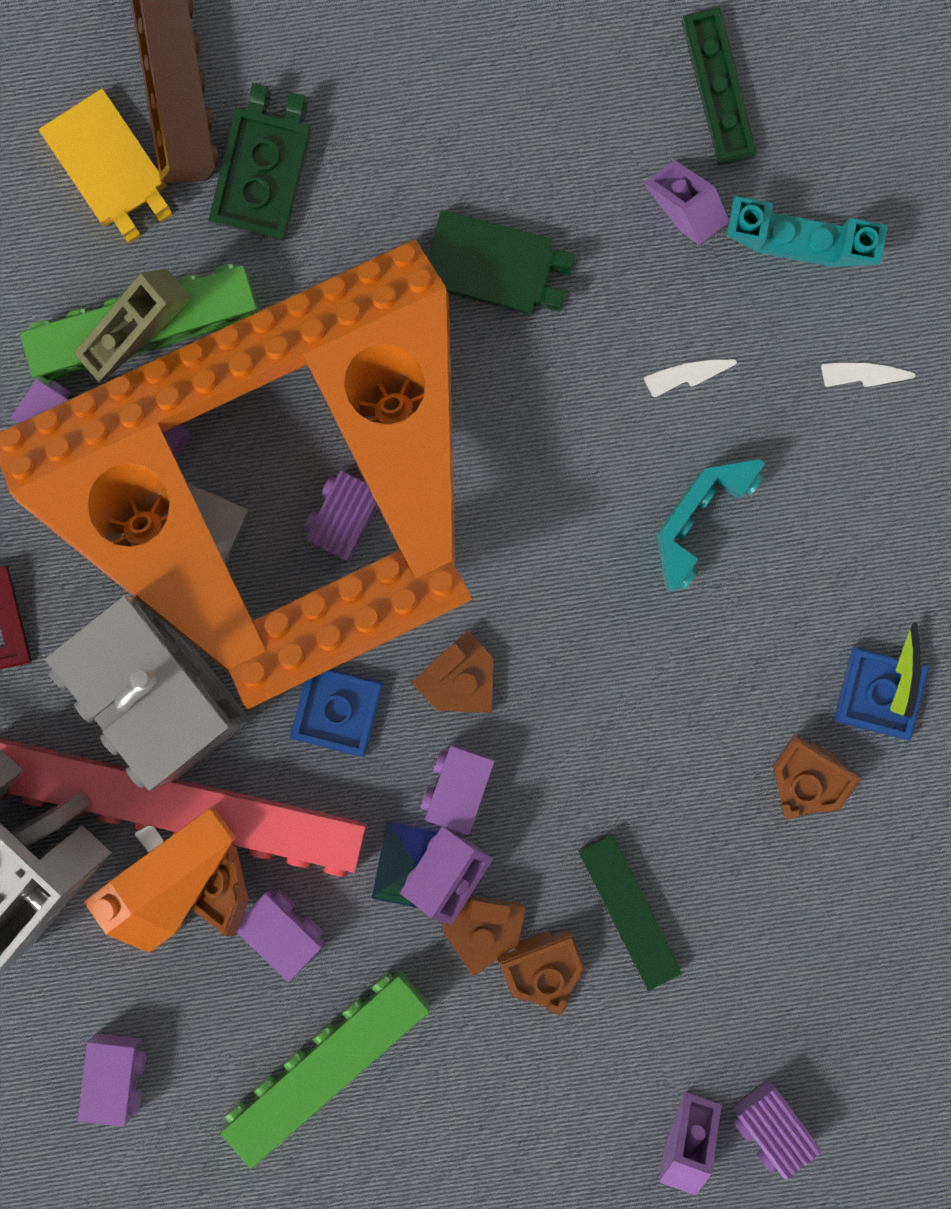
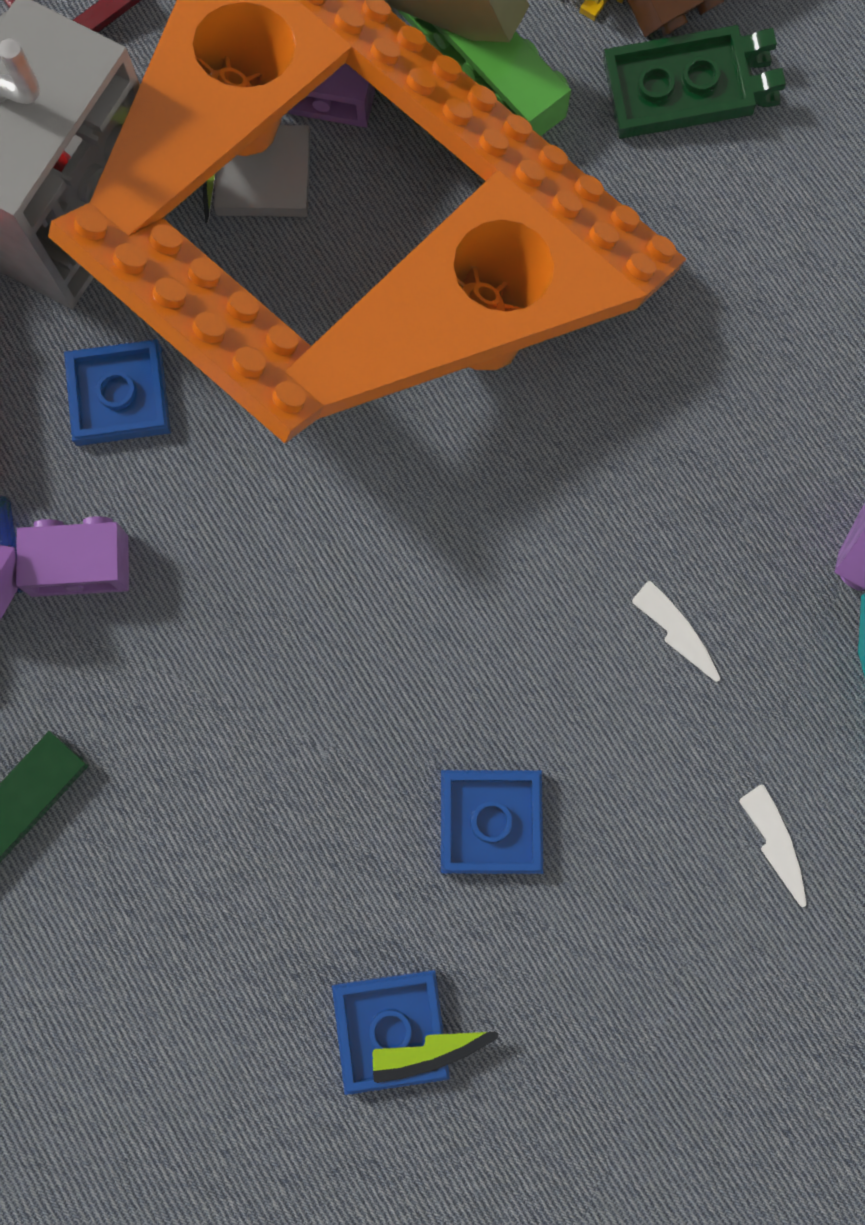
camera: 70 degrees right, 10 degrees down
(342, 516) = (324, 298): medium lavender brick -> none
(459, 678) = (208, 510): dark orange plate -> none
(497, 263) = (700, 362): dark green tile -> none
(733, 478) = (579, 729): teal slope -> none
(770, 566) = (491, 822): none -> blue tile
(811, 779) = (246, 984): dark orange plate -> none

